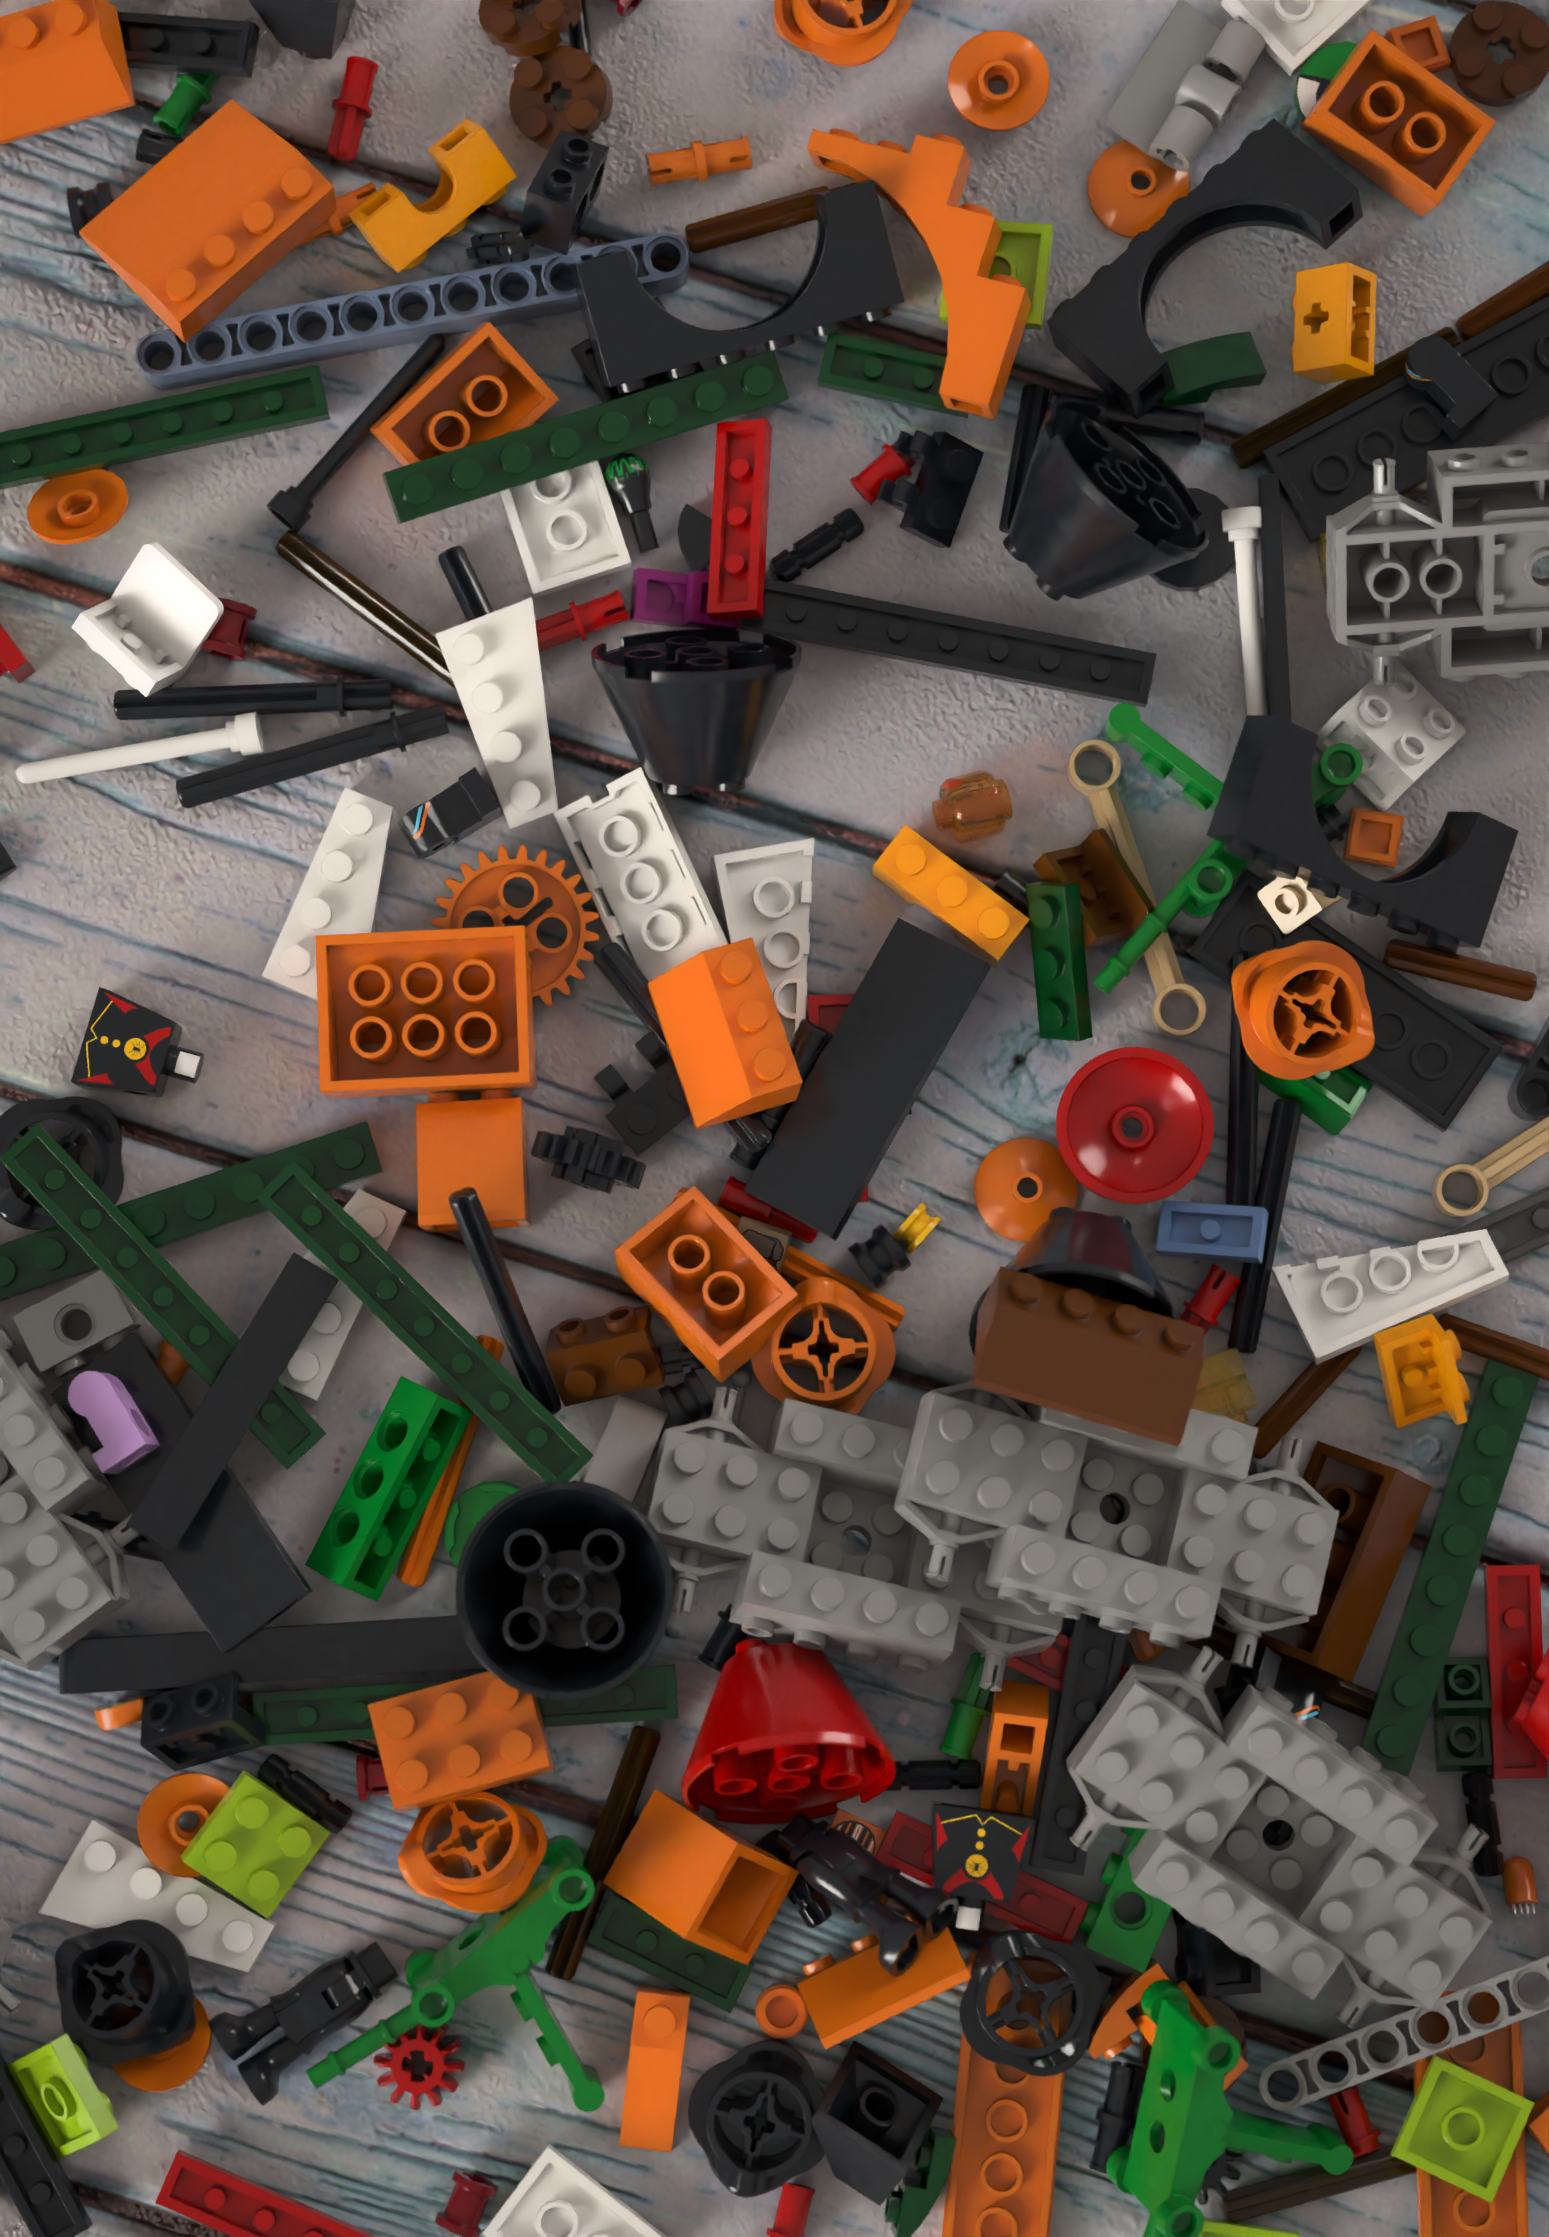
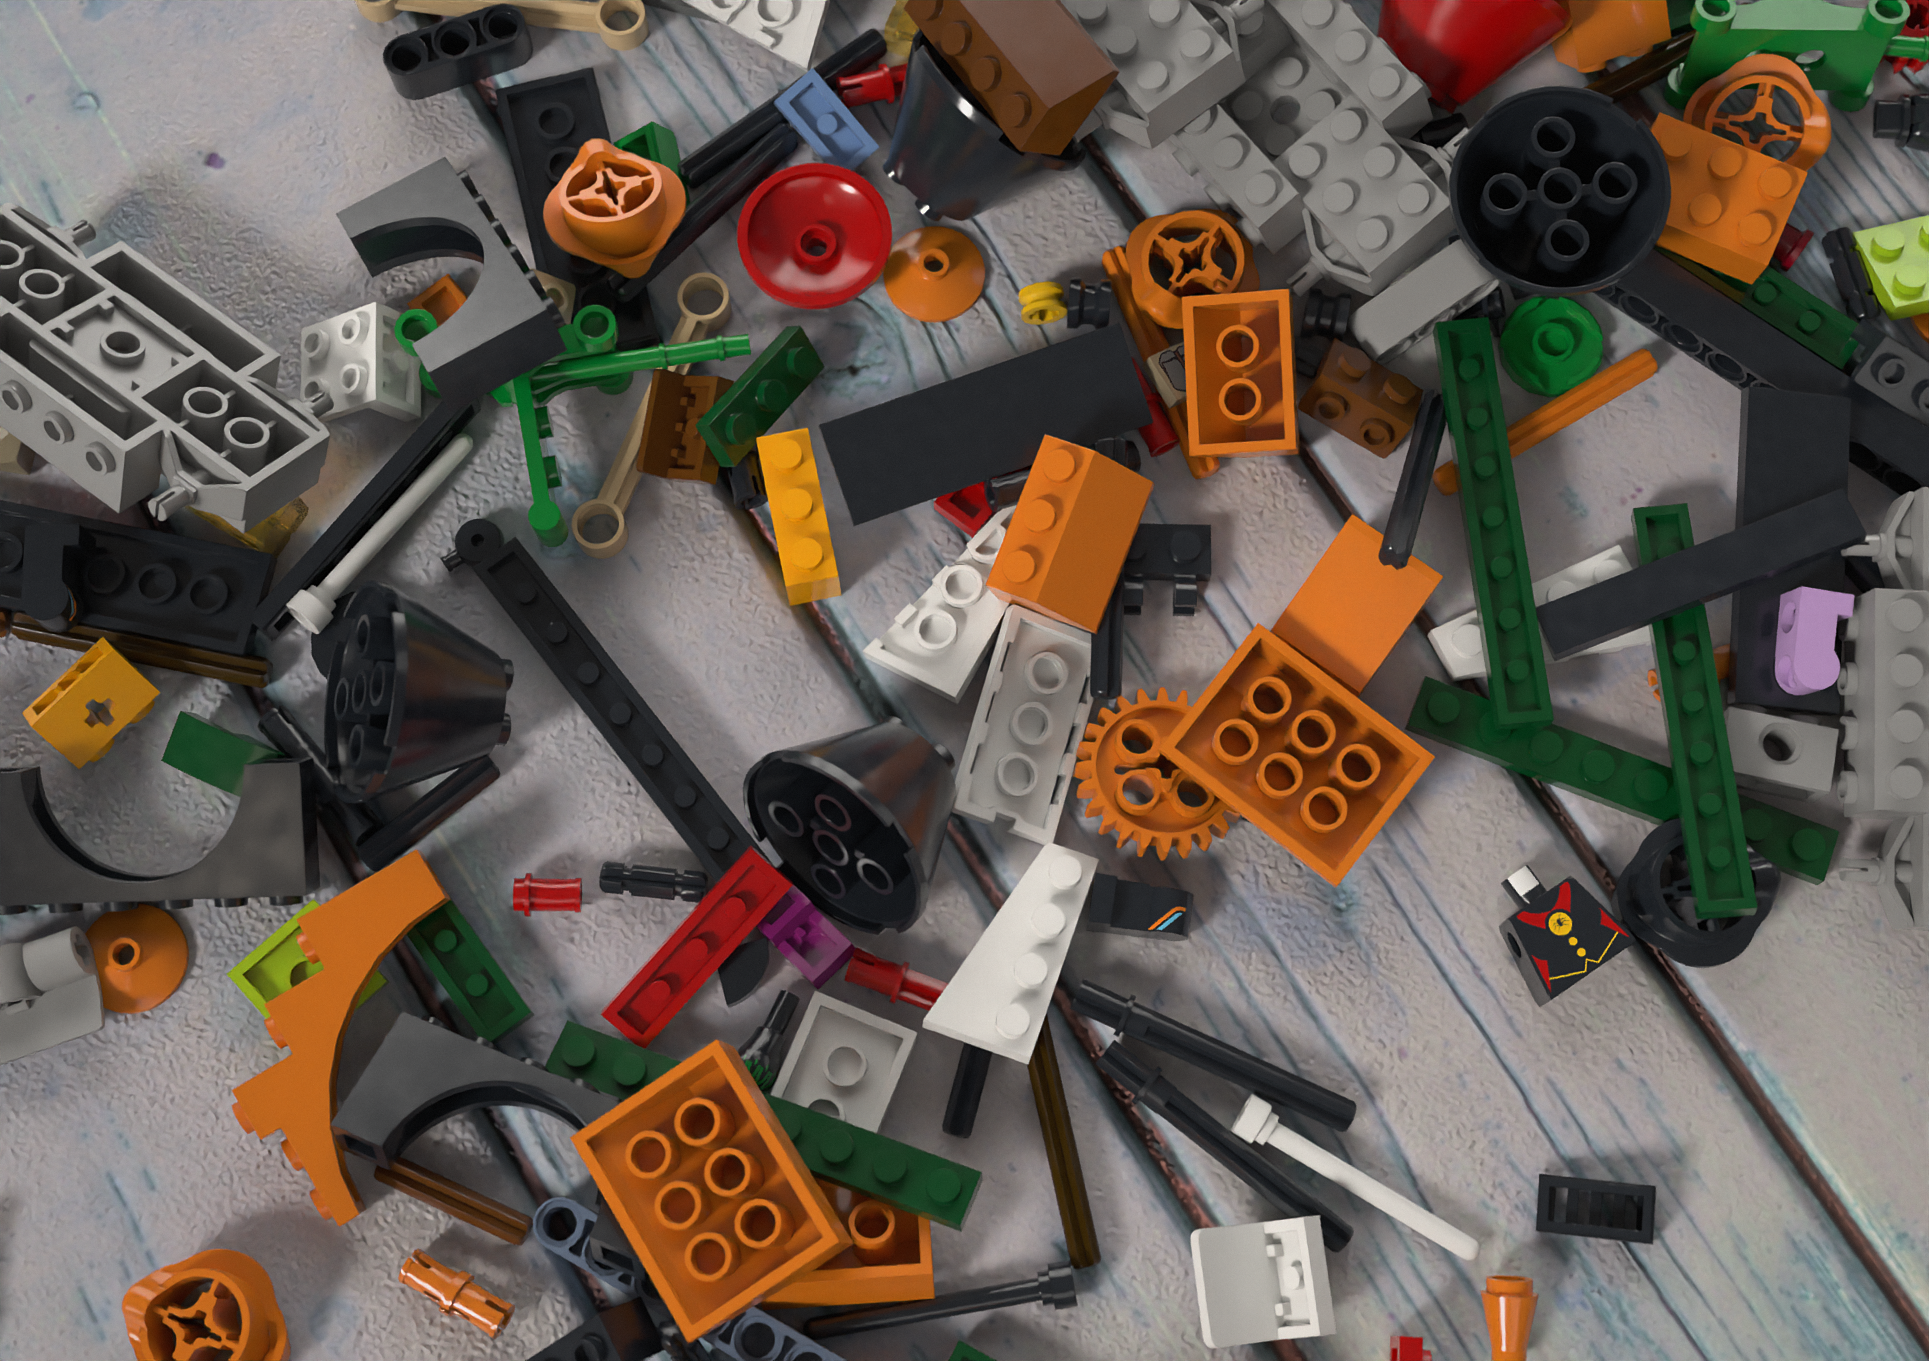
camera: 140 degrees left, 10 degrees down
(230, 631) = (1202, 1213): dark red bush -> none
(337, 890) = (1285, 924): white wing -> none
(389, 1489) = (1648, 412): green brick -> none
(569, 349) = (710, 1190): none -> orange slope
(588, 1159) = (1257, 538): black gear -> none
(941, 489) = (513, 841): black plate -> none
(972, 807) = (719, 569): clear orange head -> none
(1004, 58) = (127, 1136): orange dish -> none
(1180, 670) = (465, 542): none -> black piece
(1460, 970) = (468, 157): reddish brown axle -> none

